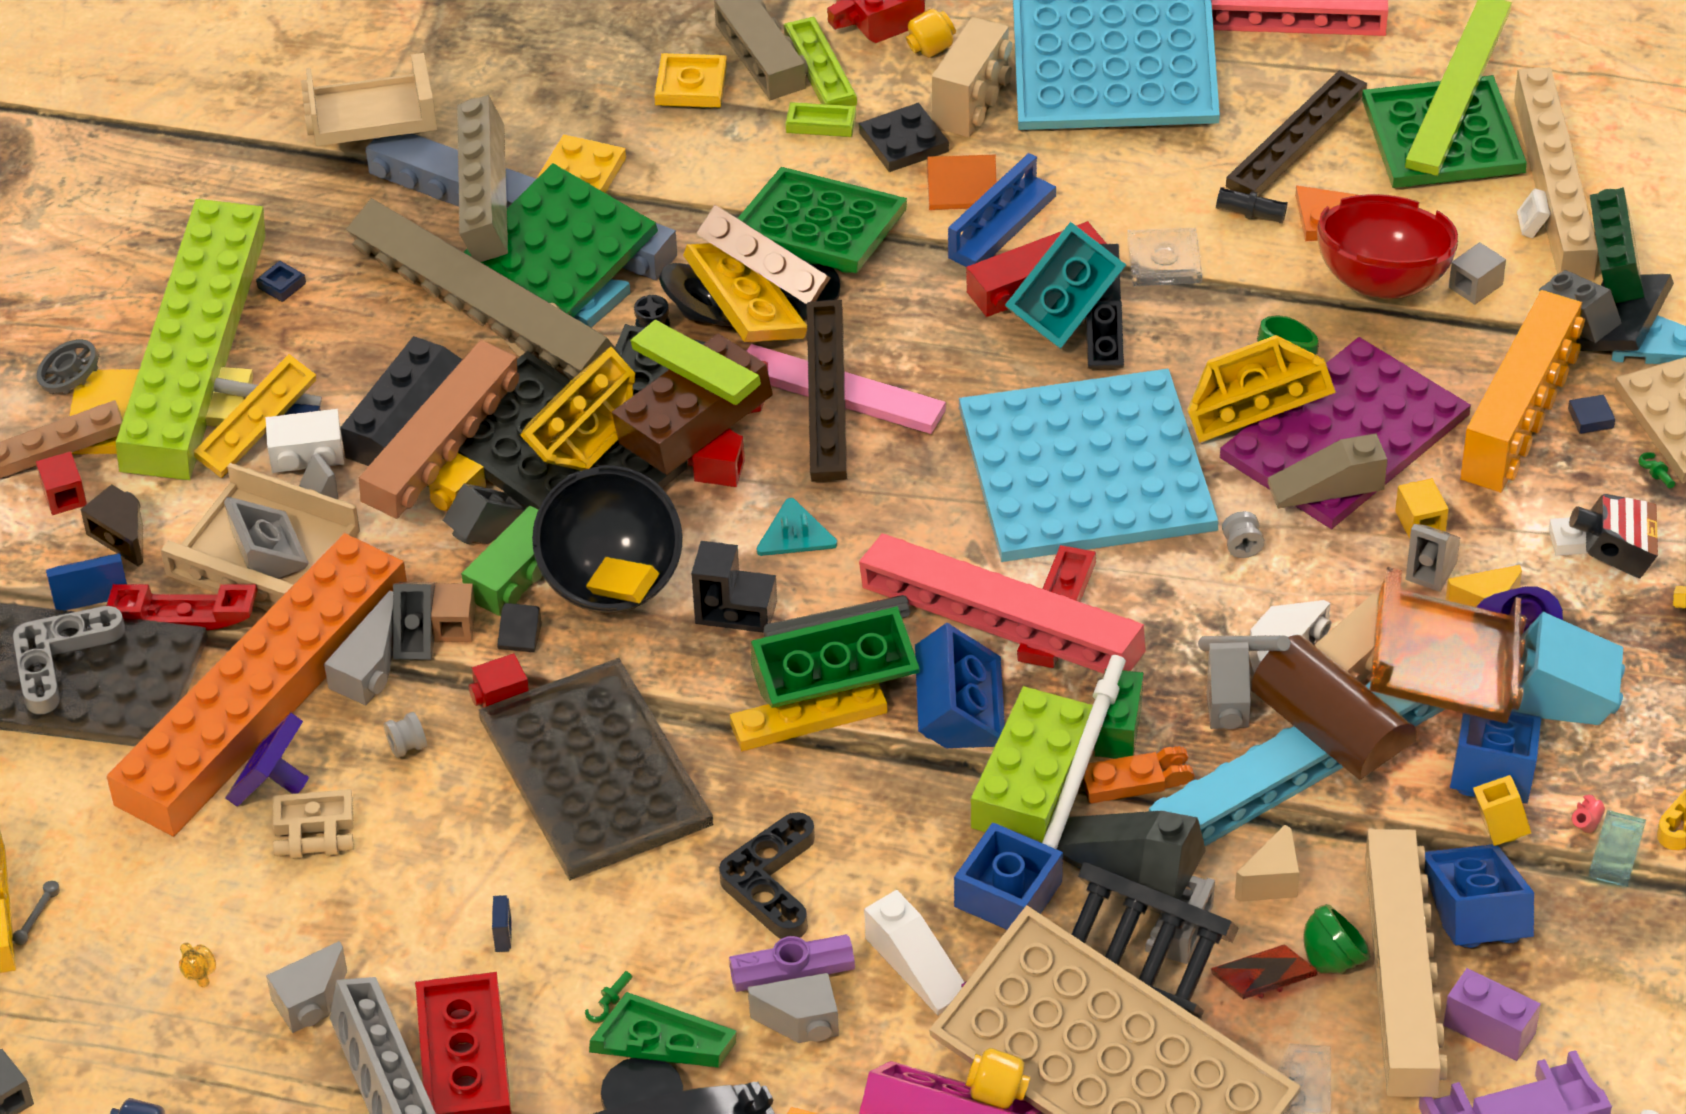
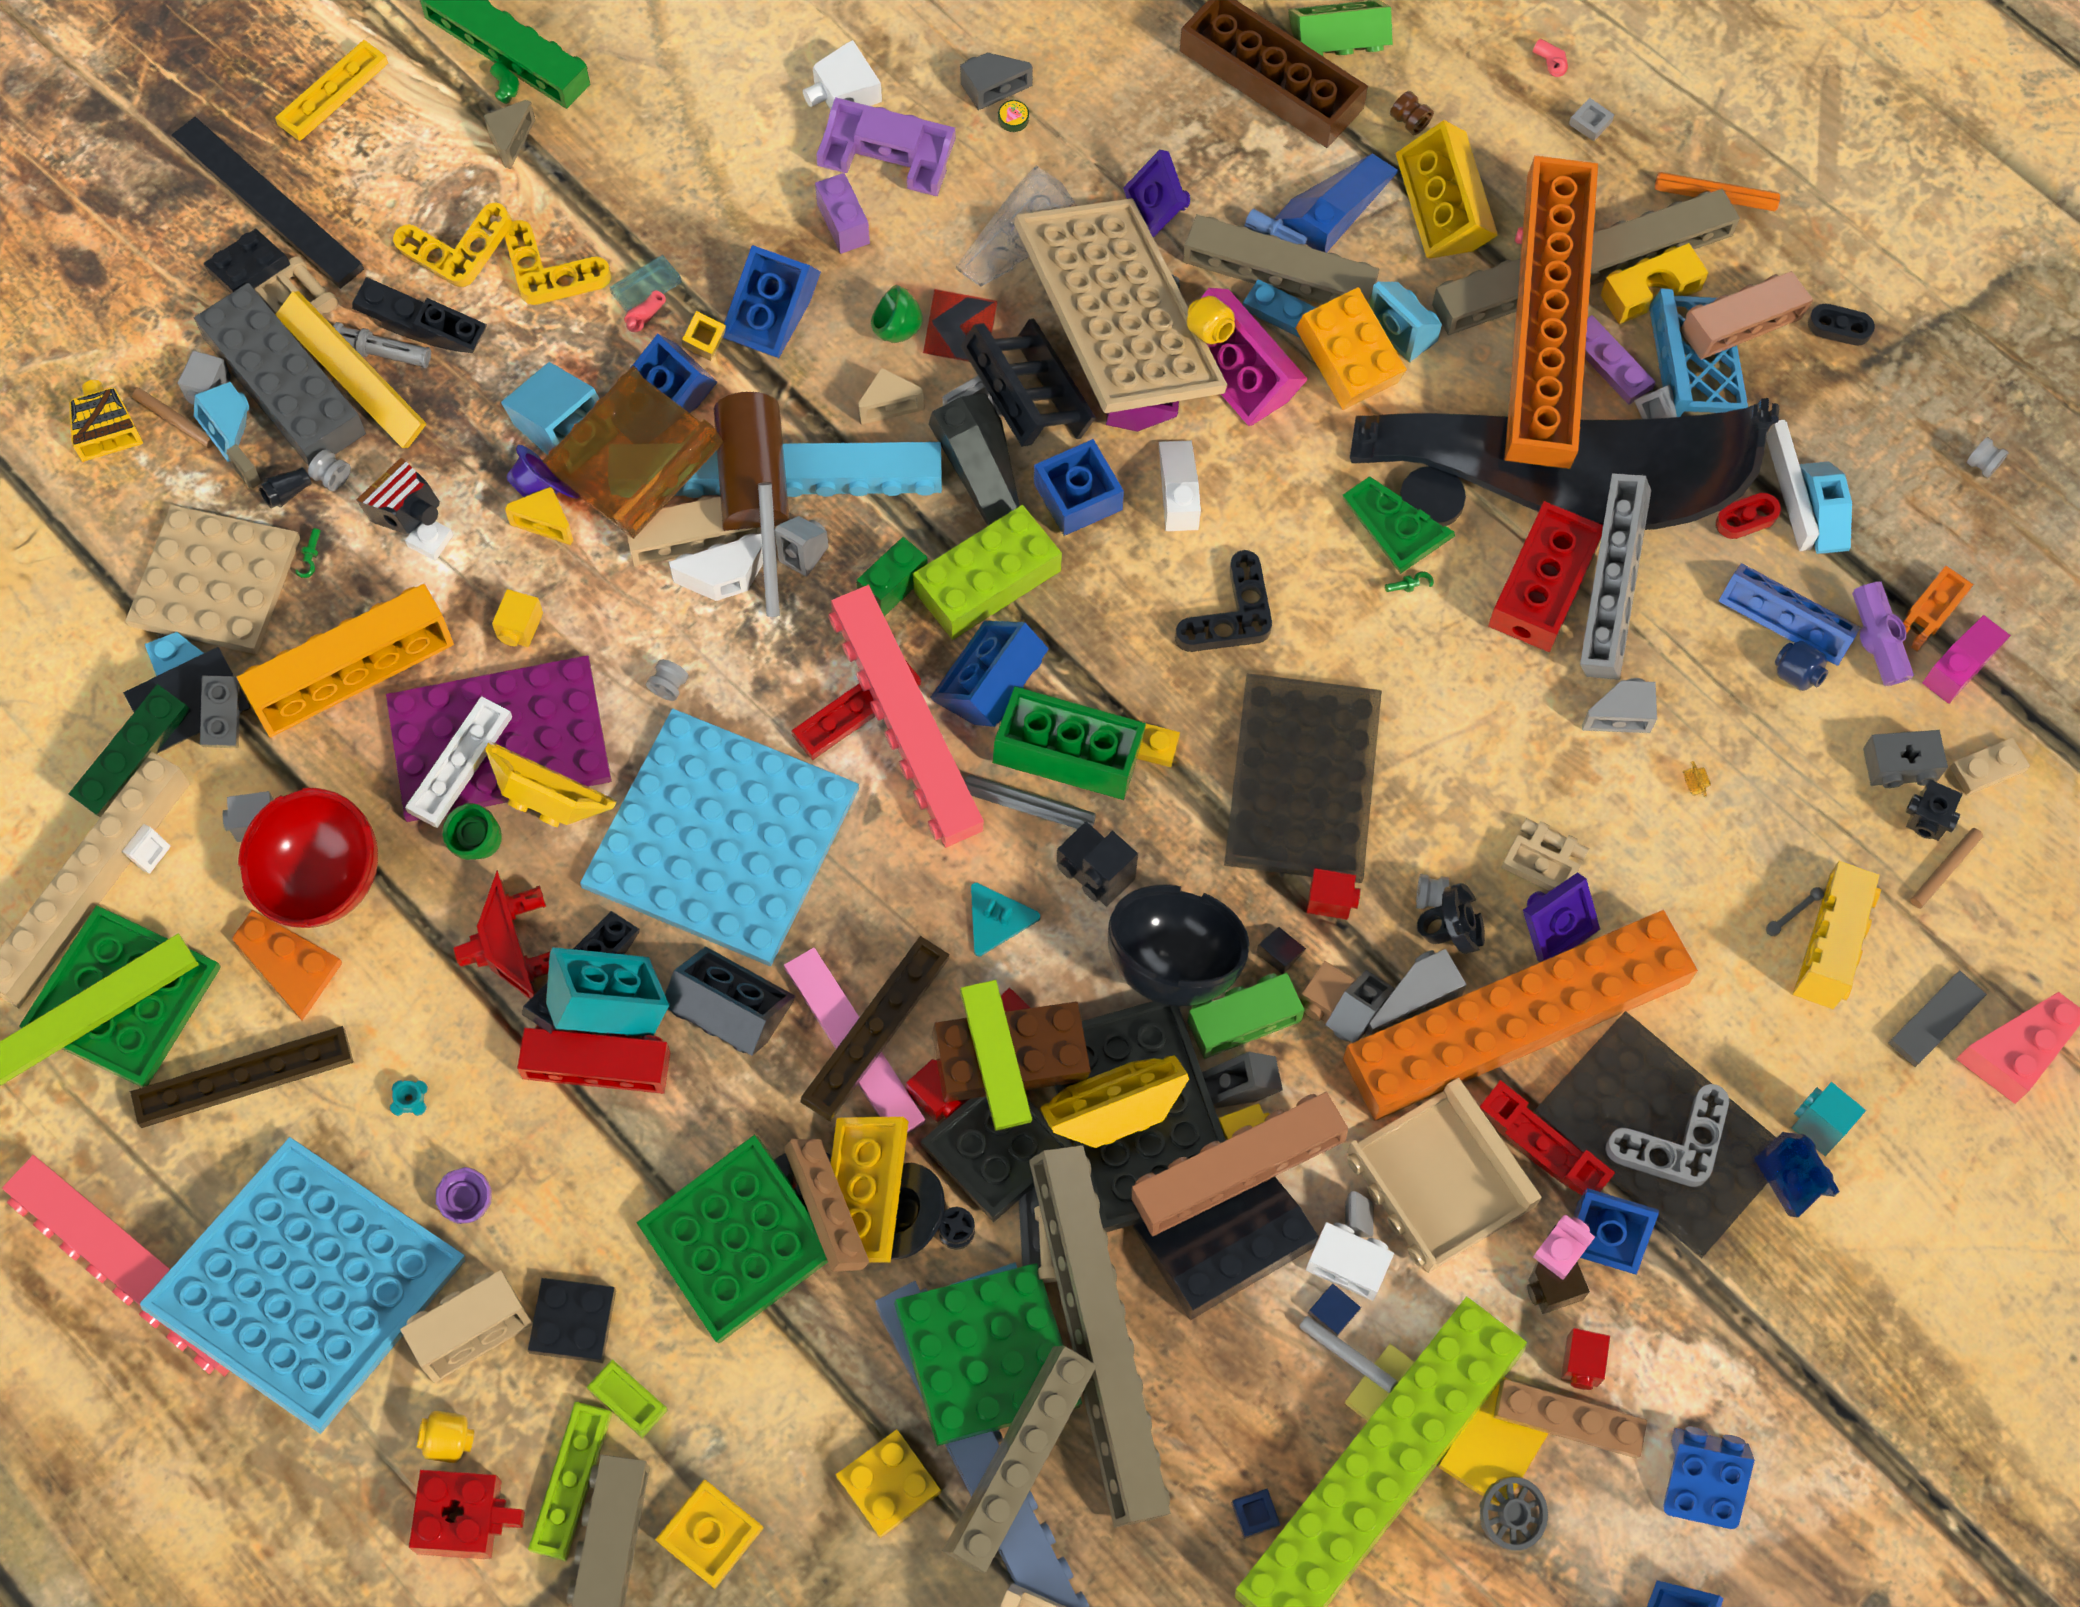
camera: 150 degrees left, 20 degrees up
(119, 517) = (1564, 1245): none -> bright pink bracket
(248, 421) = (1377, 1321): yellow plate -> none
(265, 538) = (1445, 1157): light grey slope -> none
(363, 713) = (1457, 918): none -> black tile
(501, 923) = (1454, 678): dark blue tile -> none
(622, 579) = (1181, 917): yellow tile -> none
(791, 960) = (1251, 517): medium lavender piece -> none
(796, 1008) = (1288, 488): light grey slope -> none
(959, 180) = (564, 1226): orange slope -> none
(968, 357) = (727, 1000): none -> black slope
(999, 213) = (571, 1150): blue fence -> none
(1054, 150) = (463, 1195): none -> medium lavender hair
(1104, 695) = (907, 561): white bar -> none
(1137, 775) = (925, 535): orange hinge -> none
(1159, 185) = (401, 1090): none -> teal plate
(1164, 256) = (473, 1016): clear tile -> none
(1184, 297) = (498, 940): none -> red connector
(1251, 205) = (355, 1019): black pin -> none
(1334, 472) = (563, 672): dark tan slope -> none
(1349, 374) = (458, 762): none -> white plate
(1403, 965) = (868, 271): tan brick -> none
(1431, 556) = (549, 565): light grey slope -> none
(1591, 414) = (301, 629): dark blue tile -> none

